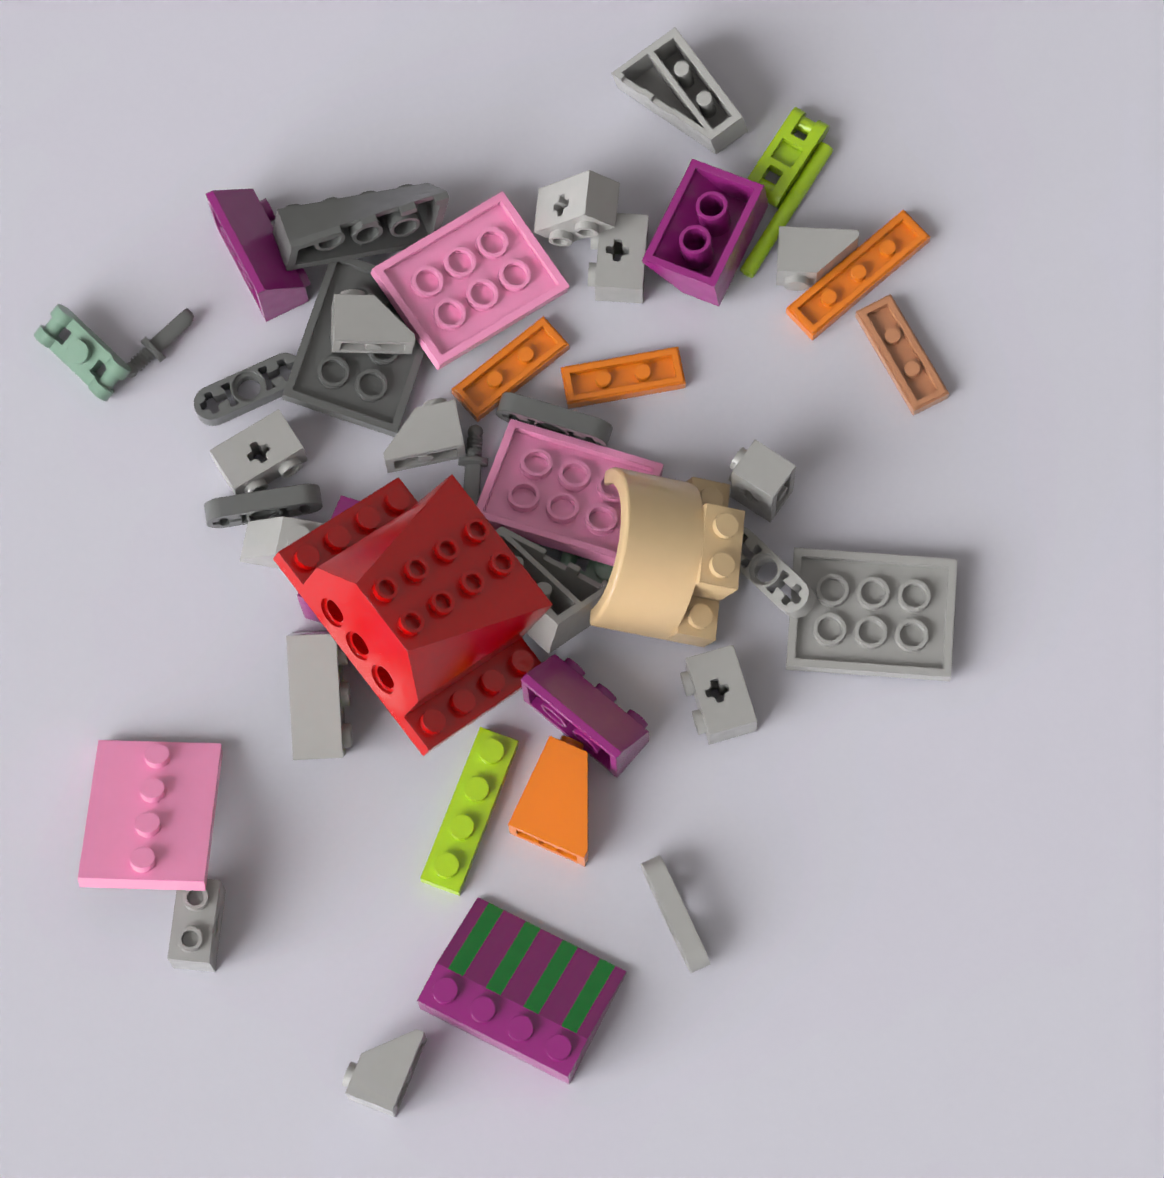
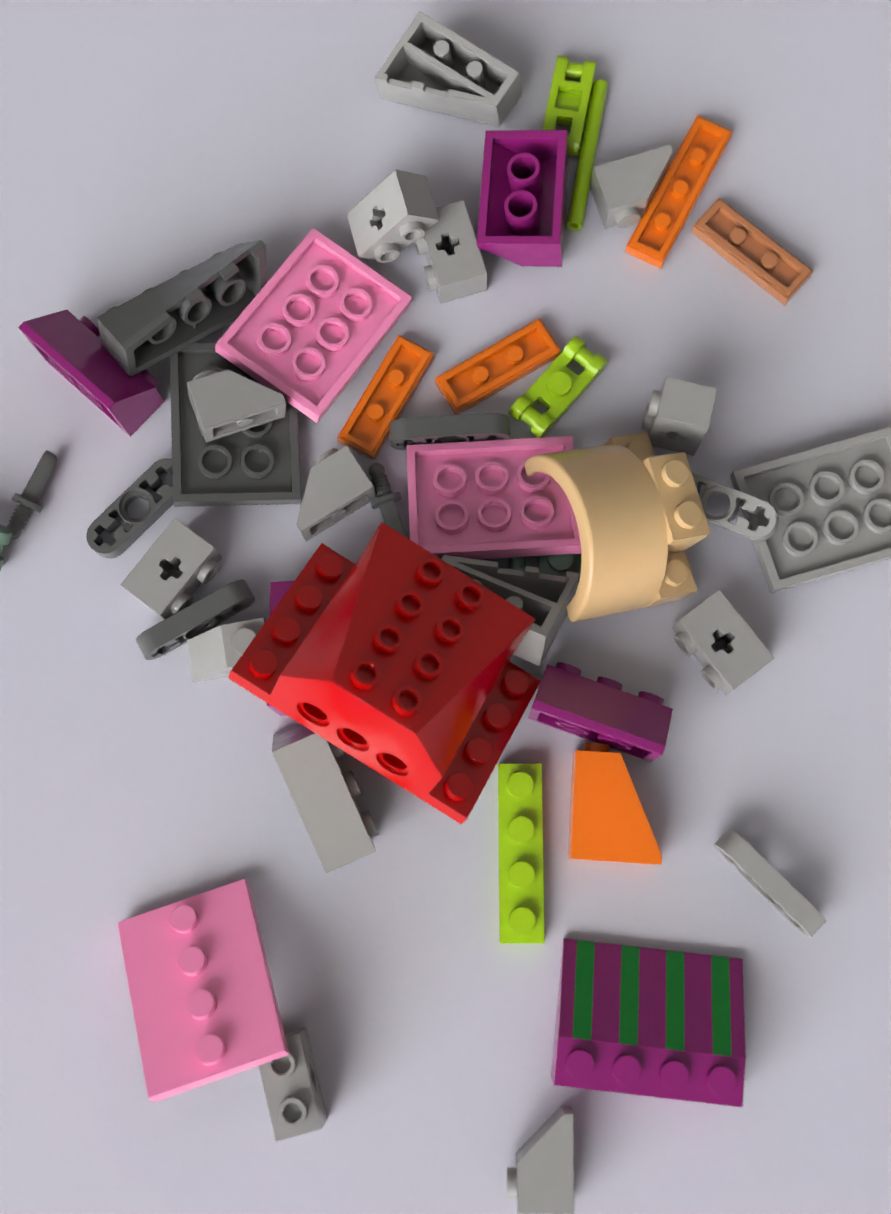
camera: 20 degrees left, 5 degrees up
(670, 416) = (558, 387): none -> lime plate

